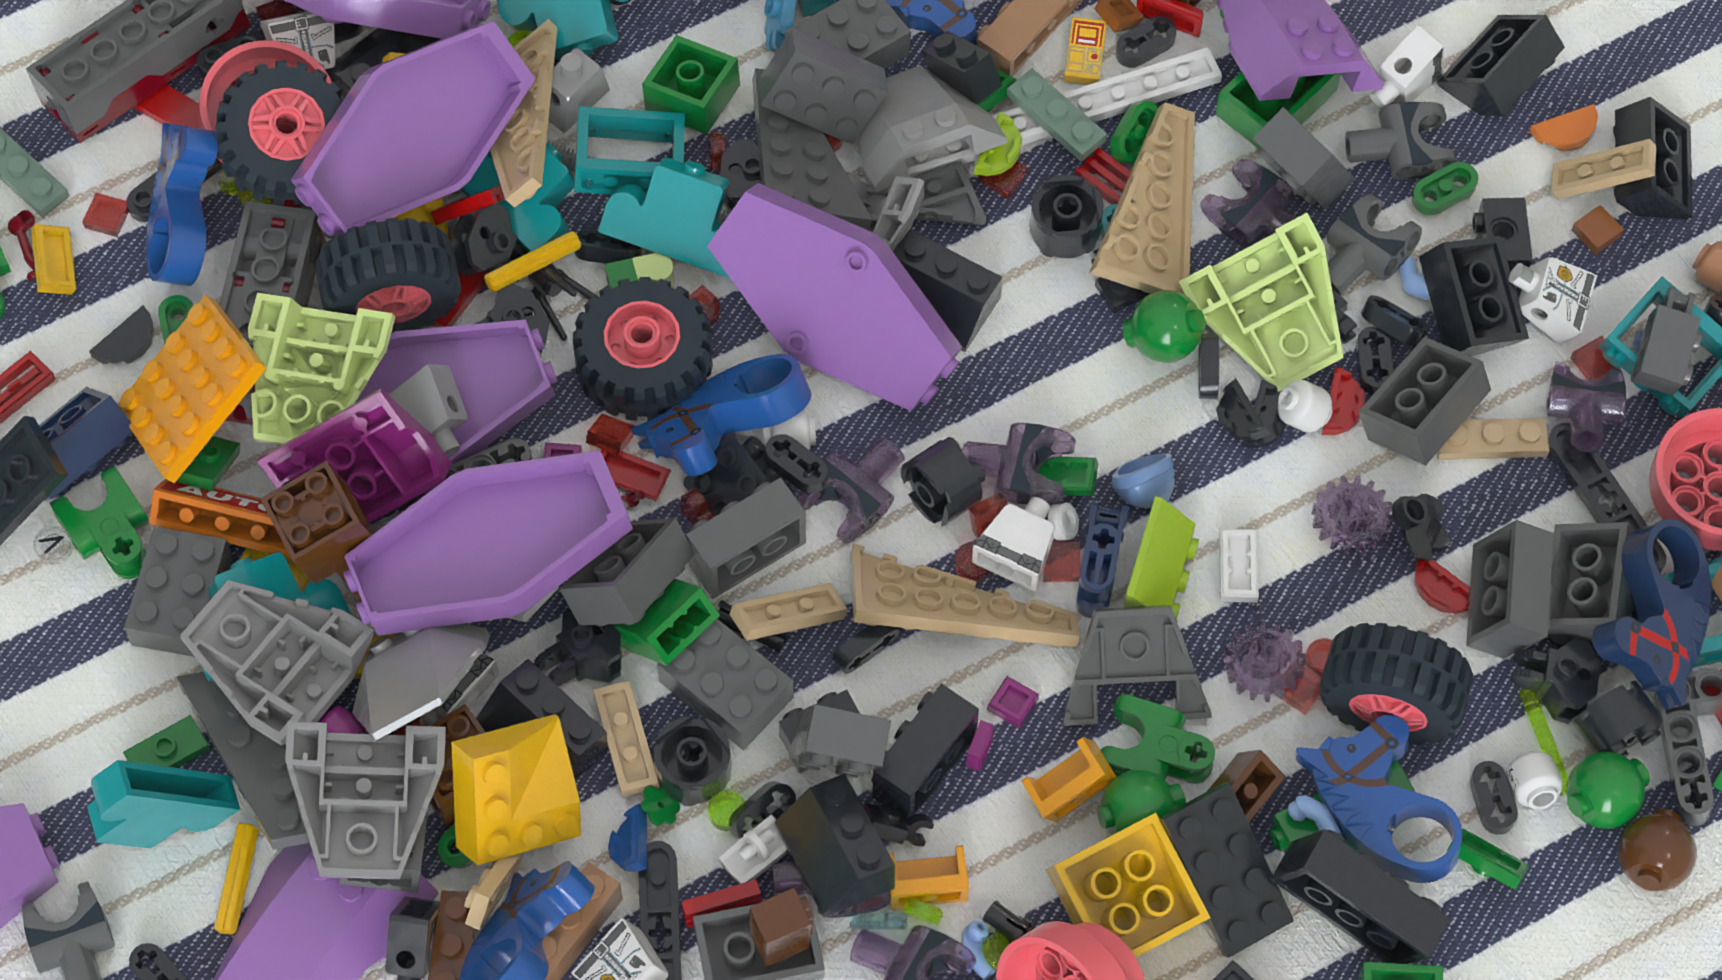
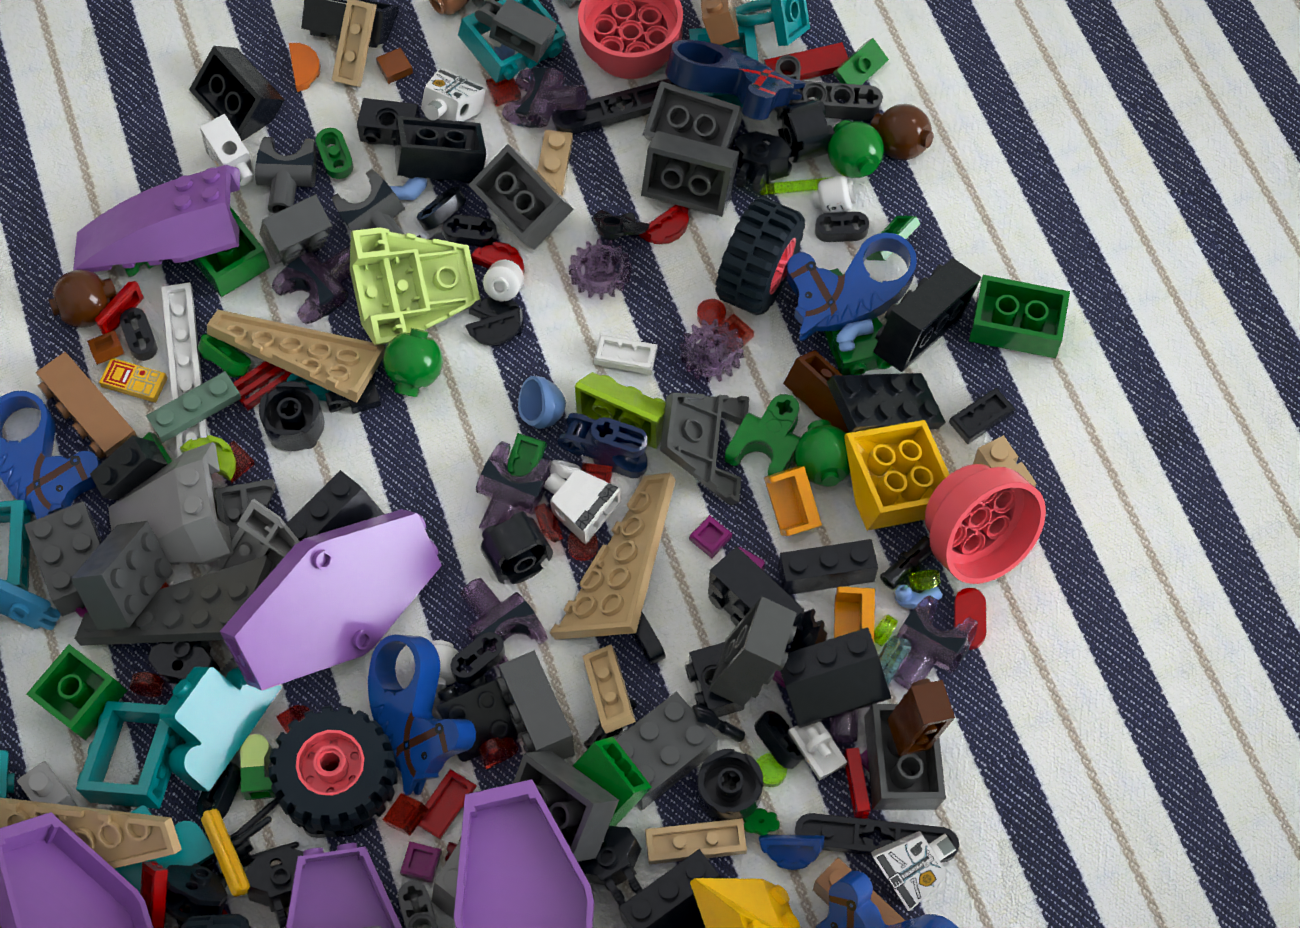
camera: 80 degrees left, 0 degrees up
(766, 725) = (708, 717): none -> black piece
(992, 835) = (828, 567): none -> black brick
(1208, 367) = (454, 342): black beam -> none

